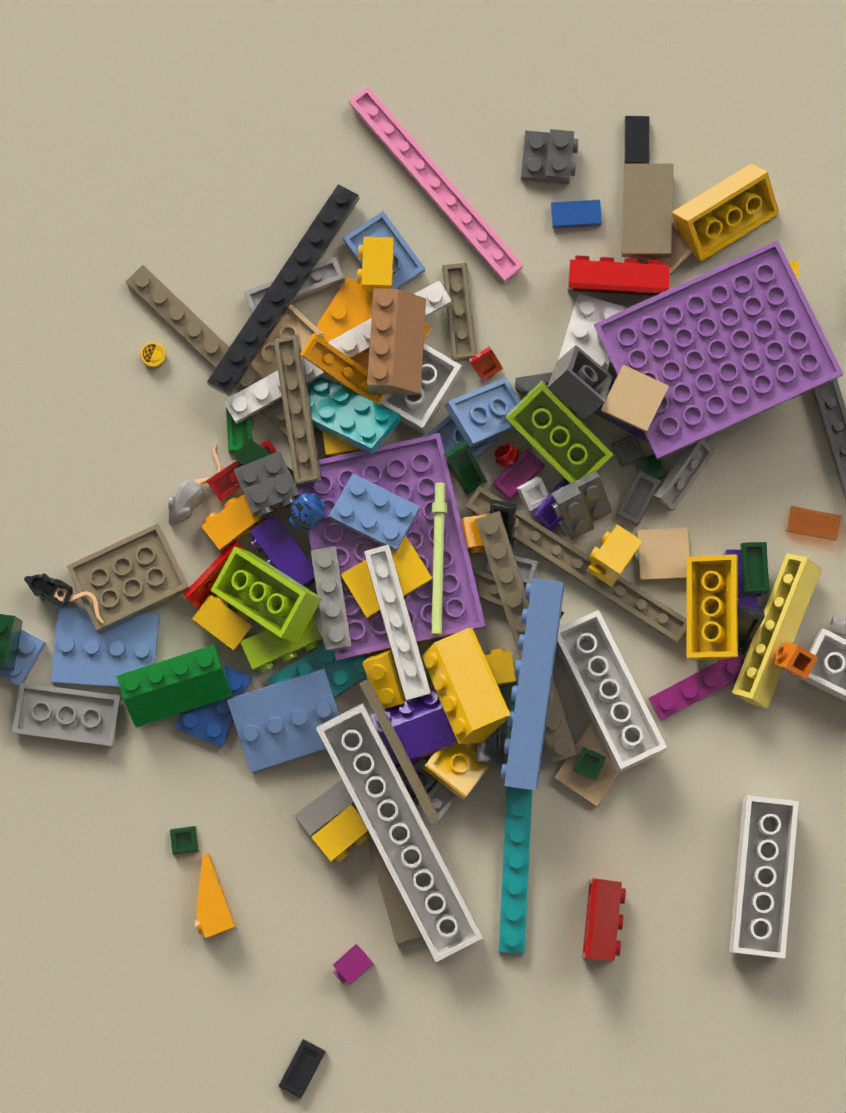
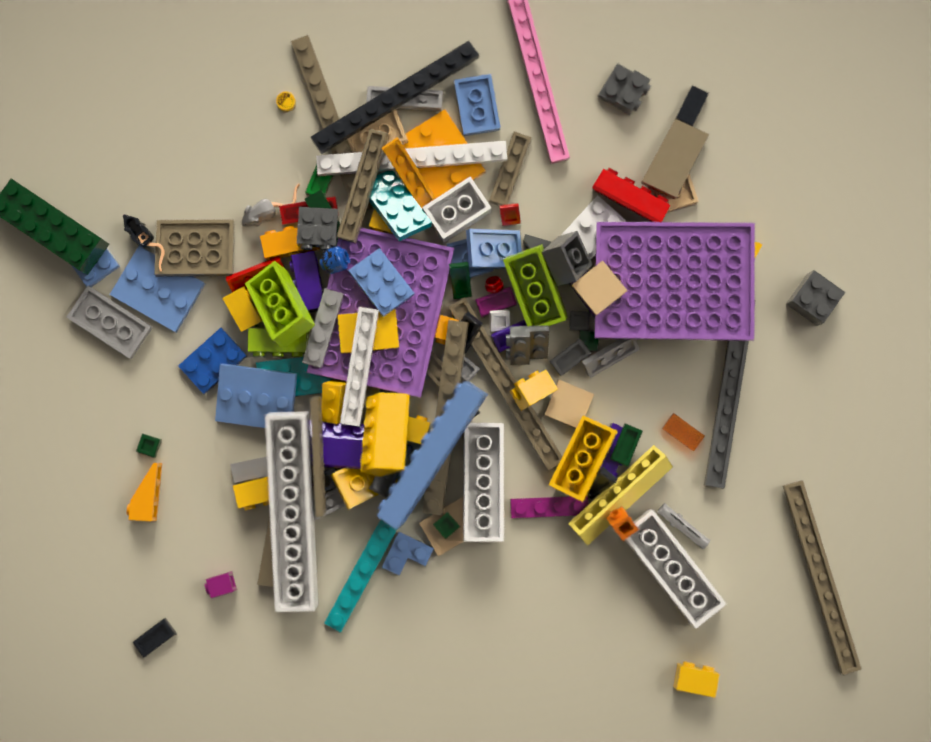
camera: 20 degrees right, 5 degrees up
(175, 686) = (189, 337): green slope -> none
(377, 263) = (467, 109): yellow brick -> none
(396, 342) = (453, 170): medium nougat slope -> none
(439, 509) = (426, 302): yellowish green bar -> none
(551, 816) = (404, 548): none -> medium blue plate
(576, 214) = (624, 138): blue tile -> none
(603, 919) = (404, 637): red slope -> none
(726, 211) = (729, 185): yellow slope -> none
(764, 876) = (528, 660): white brick -> none

